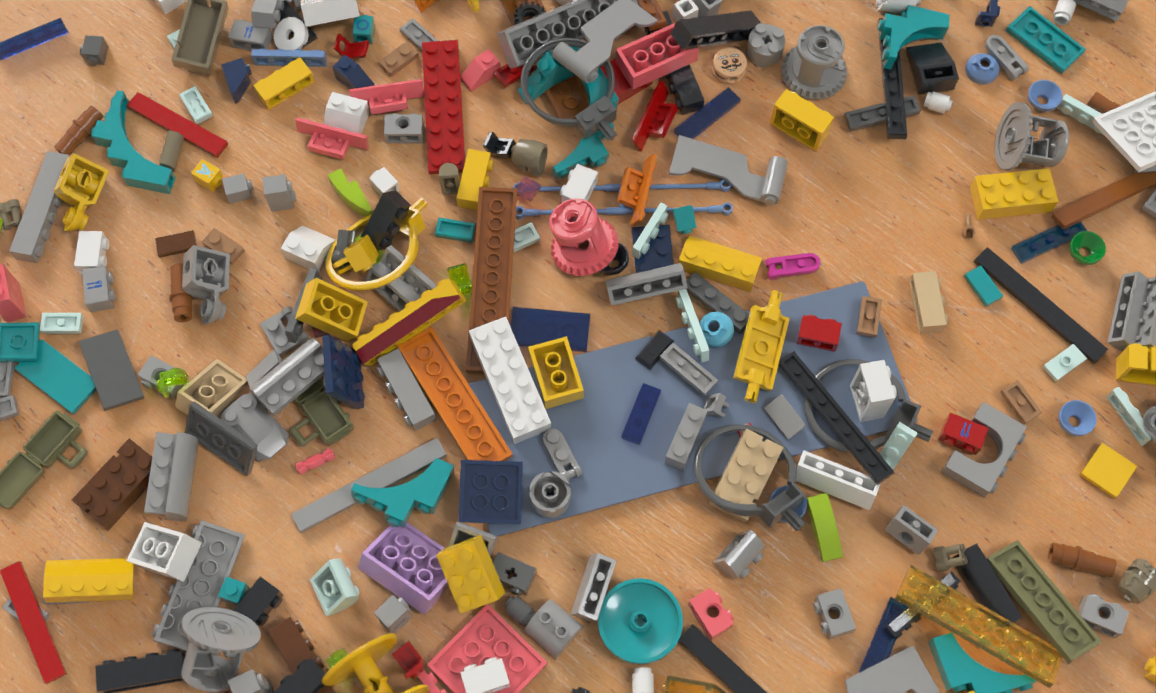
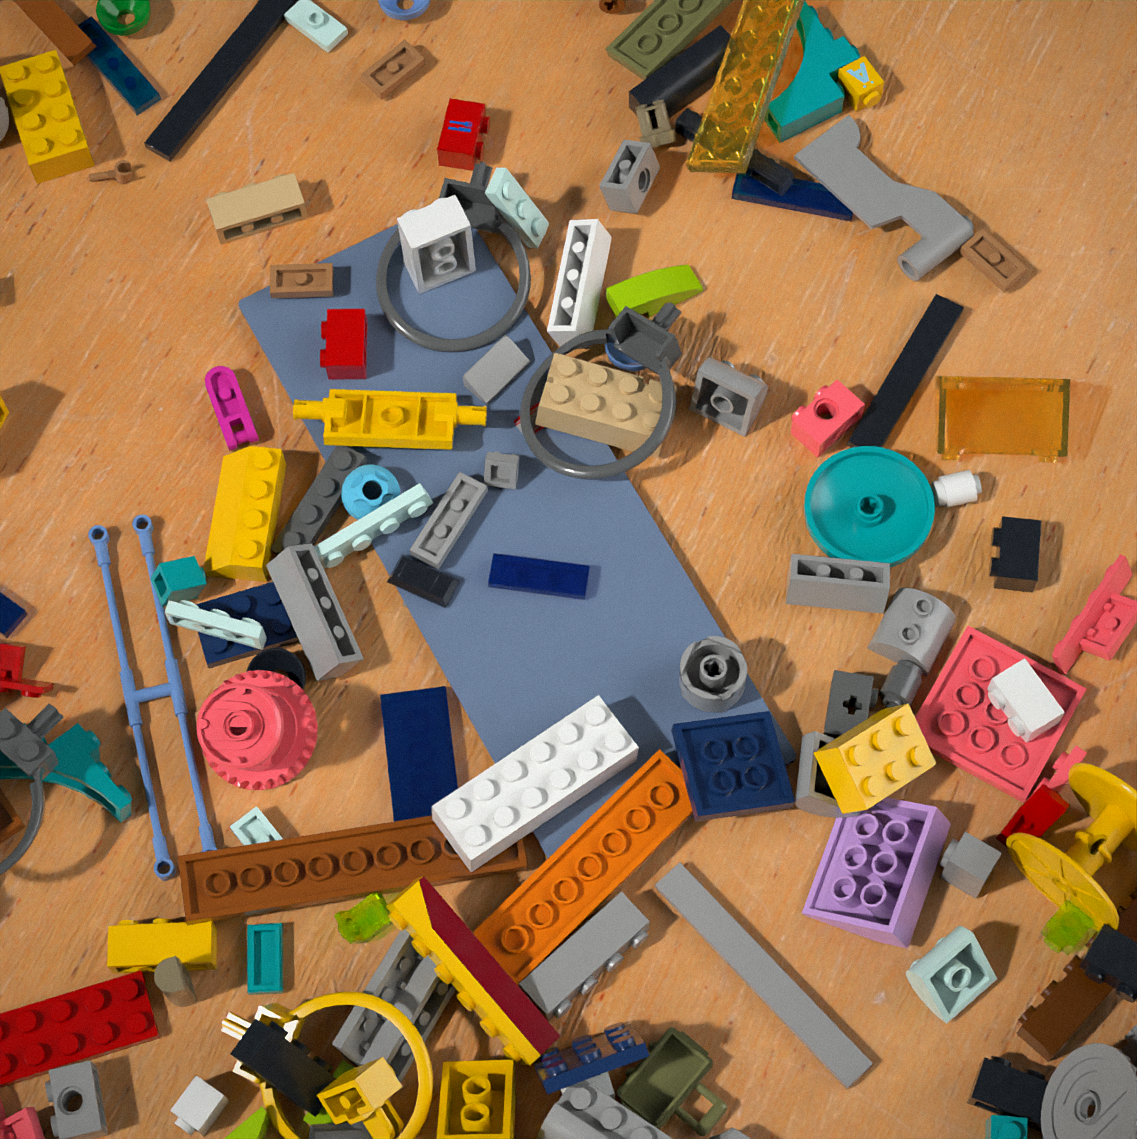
camera: 100 degrees left, 0 degrees up
(315, 461) = (745, 1076): coral axle -> none
(399, 501) = (784, 906): teal arch -> none
(498, 146) = (87, 919): black bracket -> none
(528, 188) = (165, 848): clear pink tile -> none
(530, 156) = (101, 859): dark tan helmet -> none
(556, 372) = (504, 712): yellow brick -> none
(561, 454) = (639, 679): light grey plate -> none
(580, 183) = (151, 759): white brick -> none
(635, 189) = (137, 663): orange bracket -> none
(686, 437) = (565, 499): light grey brick -> none
(730, 166) = (63, 531): light grey door -> none
(834, 601) = (786, 244): light grey brick -> none
(836, 418) = (481, 298): black tile -> none
(982, 477) = (456, 78): light grey arch -> none
(983, 286) = (211, 141): teal tile -> none

